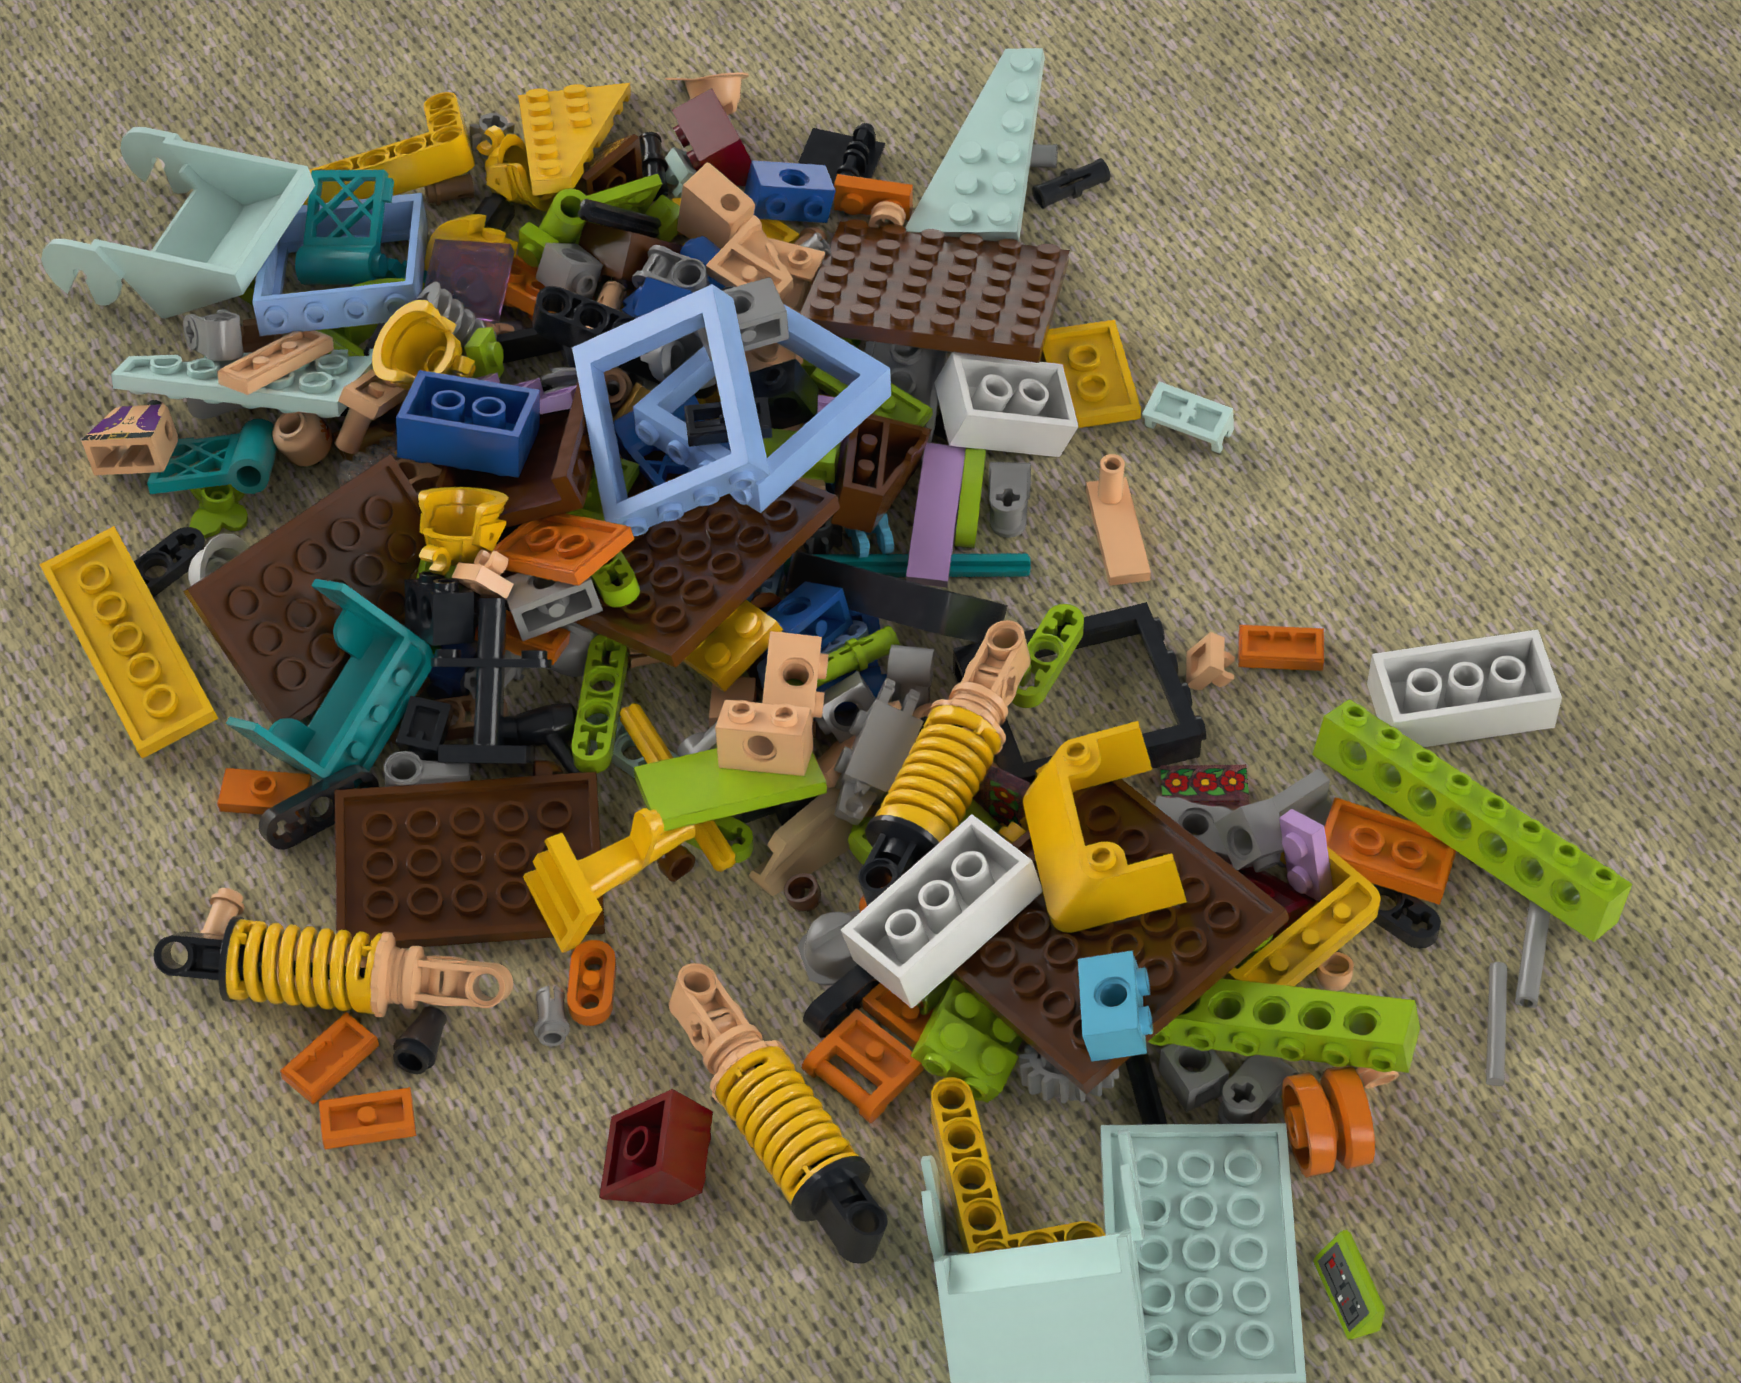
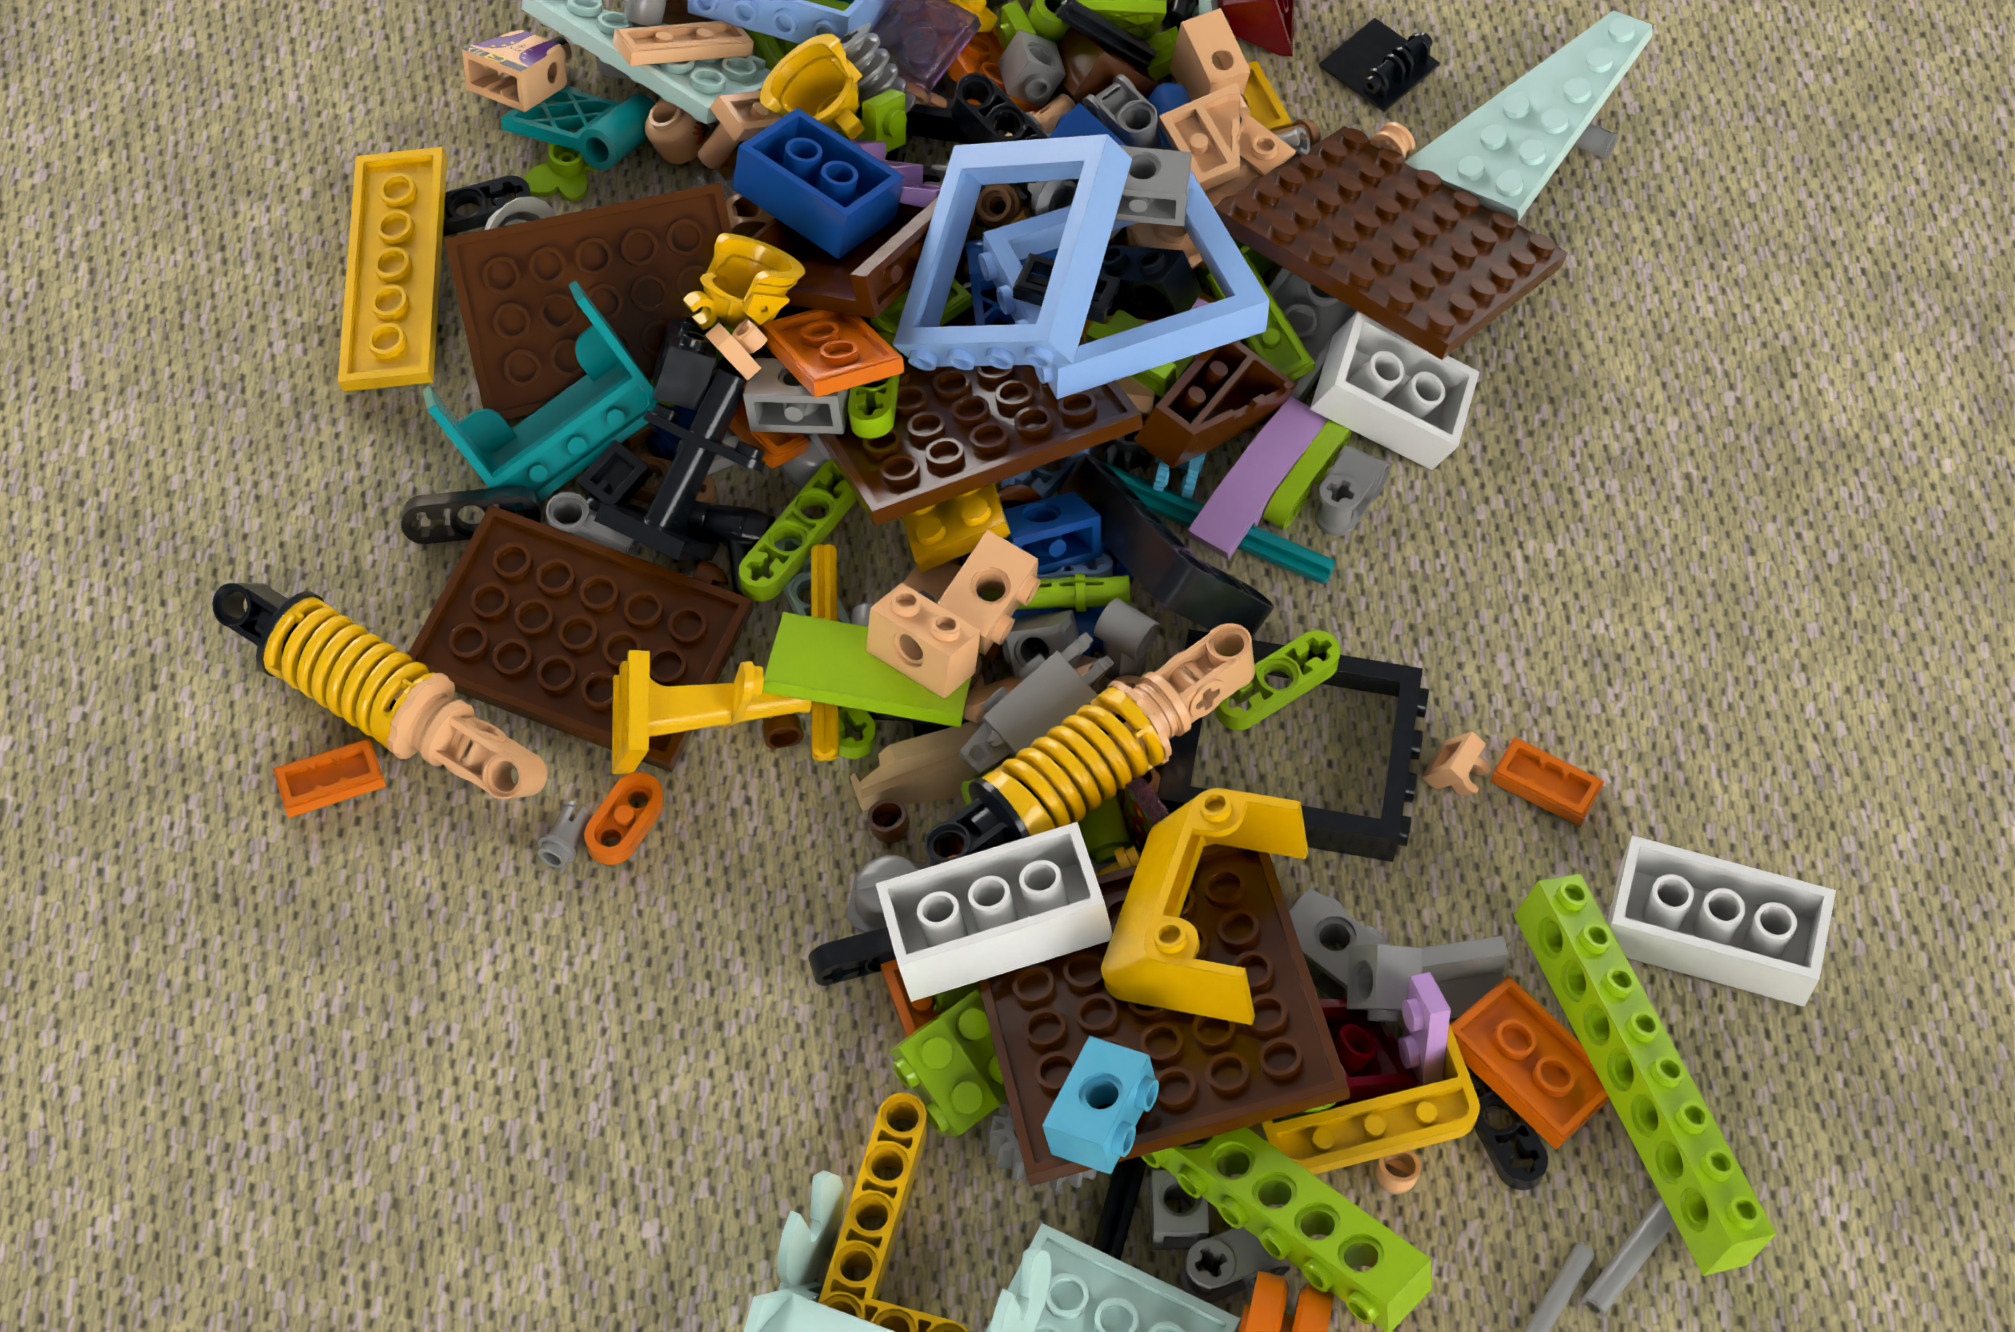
camera: 25 degrees right, 5 degrees up
(225, 905) = (322, 579): light nougat pin -> none
(258, 790) = (428, 471): orange plate -> none
(367, 1118) = (326, 857): orange plate -> none
(420, 1042) = (423, 802): black cone -> none
(657, 1151) = (581, 1030): dark red slope -> none
(780, 1116) = (716, 1054): piece -> none
(790, 191) = (1305, 74): blue brick -> none
(861, 194) = (1377, 105): orange plate -> none
(873, 1055) = (857, 1028): orange plate -> none
(1050, 191) = (1640, 181): black pin -> none
(1094, 372) = (1514, 394): yellow plate -> none
(1117, 524) = (1447, 570): light nougat piece -> none
(1189, 415) = (1590, 484): light aqua hinge -> none
(1206, 784) = (1378, 897): tile -> none

